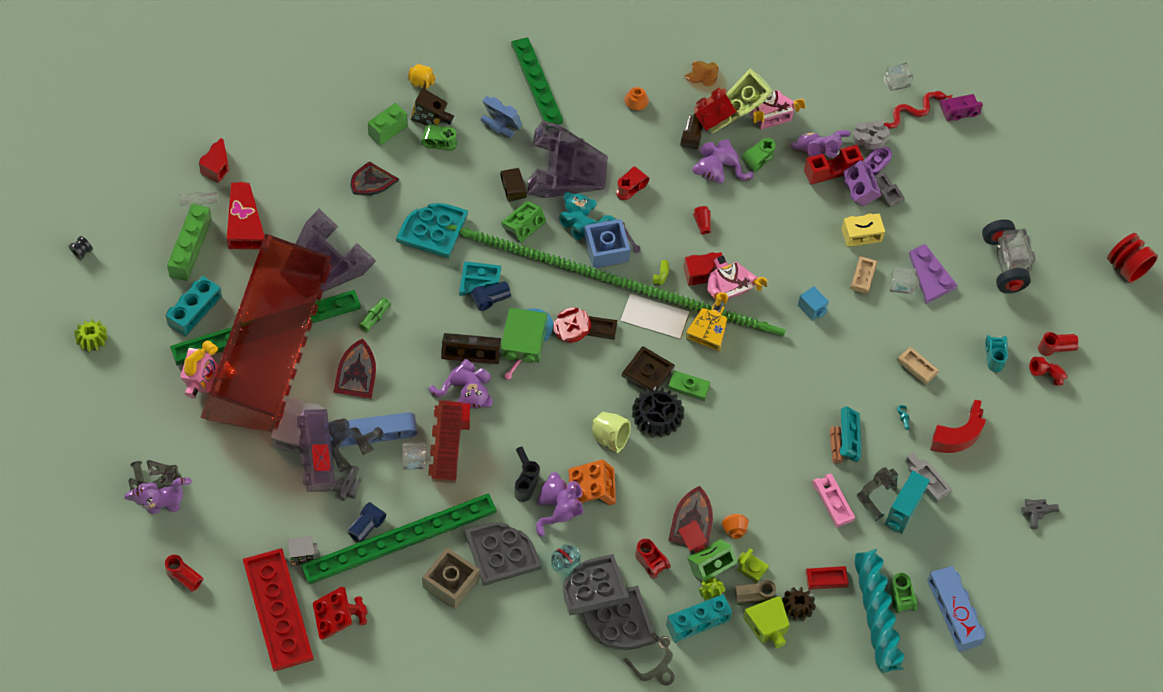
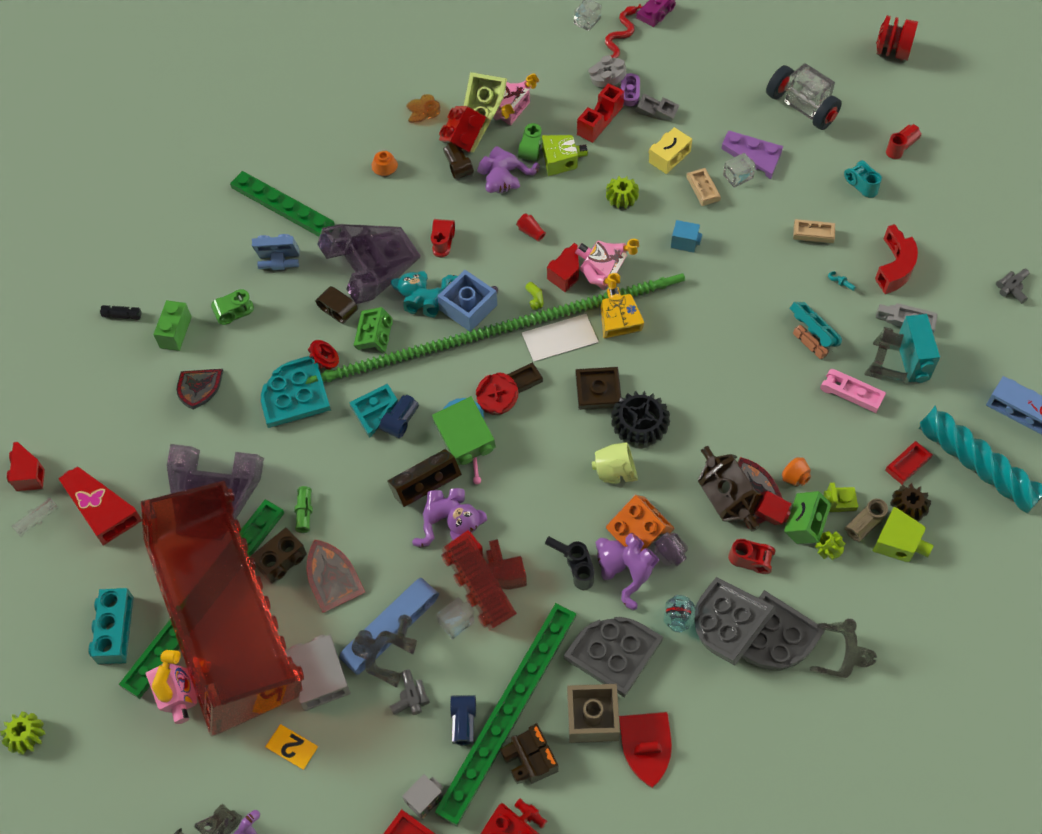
camera: 30 degrees left, 0 degrees up
(189, 242) = (58, 565): bright green brick -> none
(246, 462) = (291, 746): none -> yellow sticker
(316, 450) = (359, 683): clear purple brick -> none
(333, 329) = (274, 552): none -> dark brown brick
(361, 90) = (120, 312): none -> black axle
(391, 578) = (534, 755): none -> dark brown hips
(421, 76) = (170, 263): yellow head -> none
(430, 109) = (204, 286): dark brown torso -> none
(472, 449) = (508, 572): none -> clear red brick
(472, 625) = (646, 745): none -> red shield
(479, 213) = (319, 350): none -> red gear
(598, 514) = (670, 549): none -> clear purple head
(673, 514) = (741, 498): none -> dark brown plate
(689, 385) = (643, 377): bright green plate -> none
(698, 618) = (842, 580): teal brick -> none
(776, 177) = (561, 153): none -> lime torso
(795, 238) = (622, 192): none -> lime gear
(816, 145) = (574, 105): medium lavender animal -> none
(861, 183) = (638, 110): medium lavender brick -> none
(903, 597) = (984, 428): bright green piece -> none
(1039, 366) = (907, 167): red arm -> none

